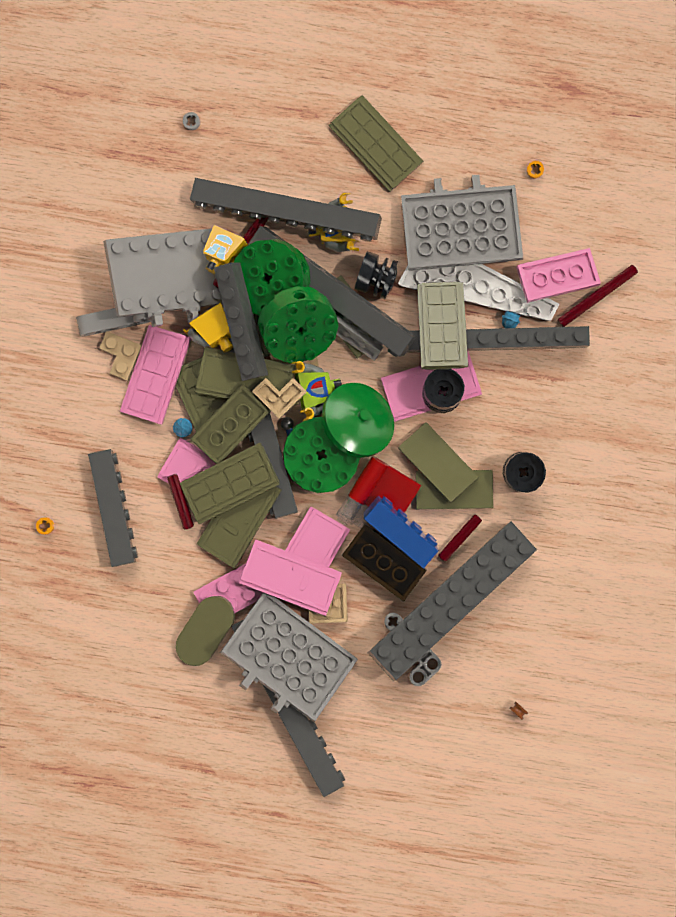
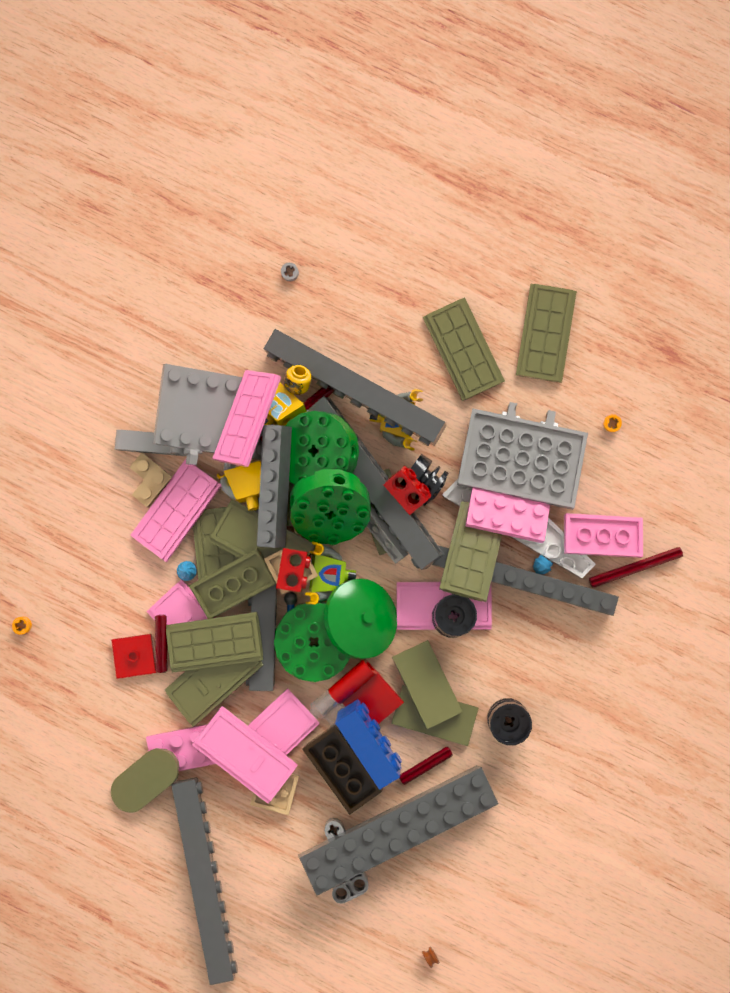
camera: 15 degrees right, 0 degrees up
(112, 508) = (92, 629): dark grey brick -> none
(158, 521) = (133, 656): none -> red plate
(196, 266) = (246, 418): none -> bright pink piece
(231, 218) = (297, 379): none -> yellow head
(277, 393) = (287, 569): none -> red brick
(288, 657) = (217, 834): light grey hinge -> none
(361, 291) = (402, 493): none -> red brick
(448, 104) = (546, 333): none -> olive piece
(464, 283) = (507, 515): none -> bright pink plate

